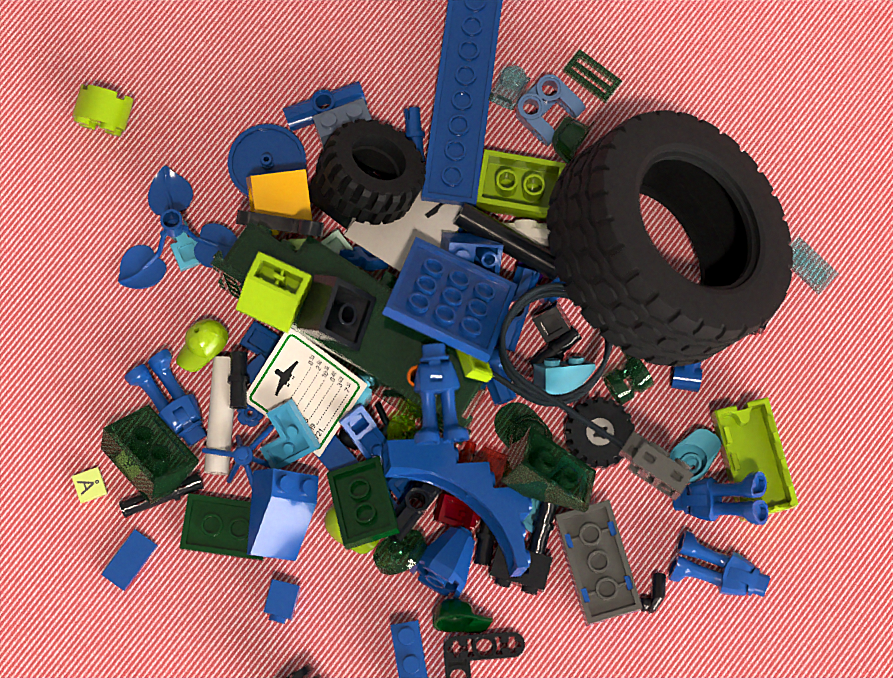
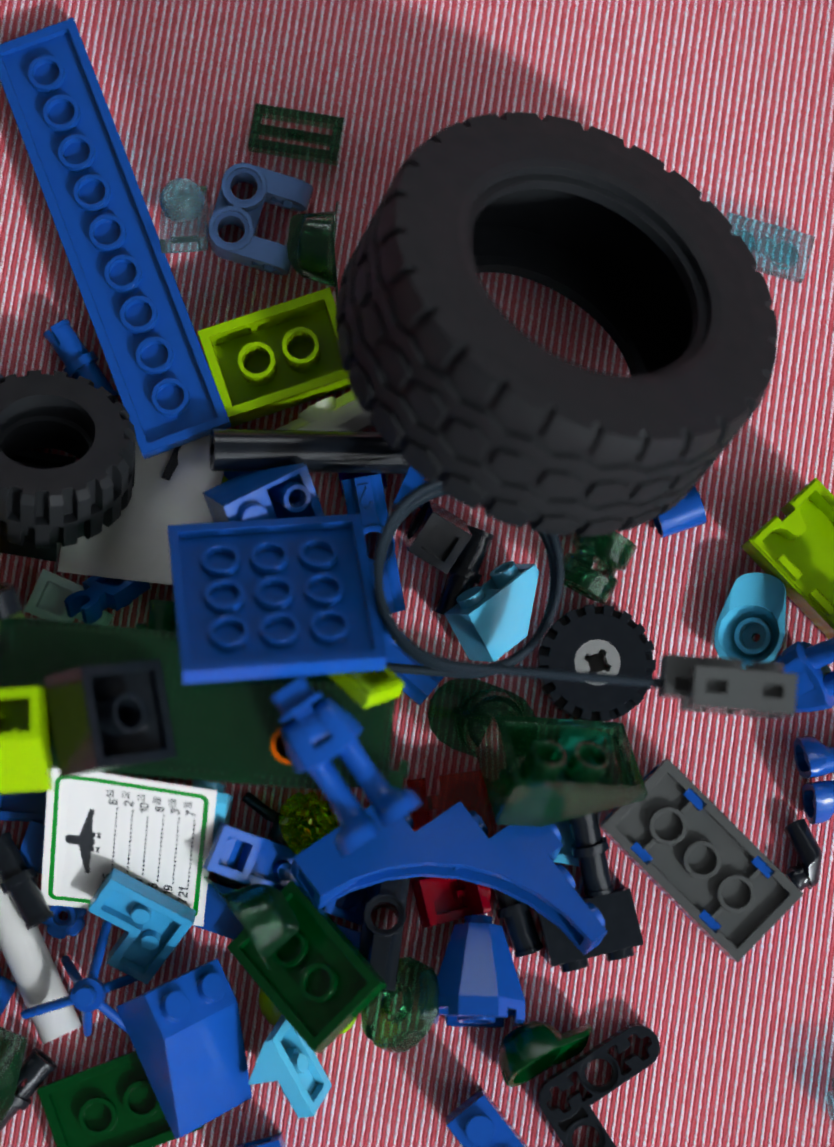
camera: 30 degrees left, 5 degrees up
(327, 548) = (296, 1068): none -> medium azure slope
(354, 462) = (263, 914): none -> clear green piece

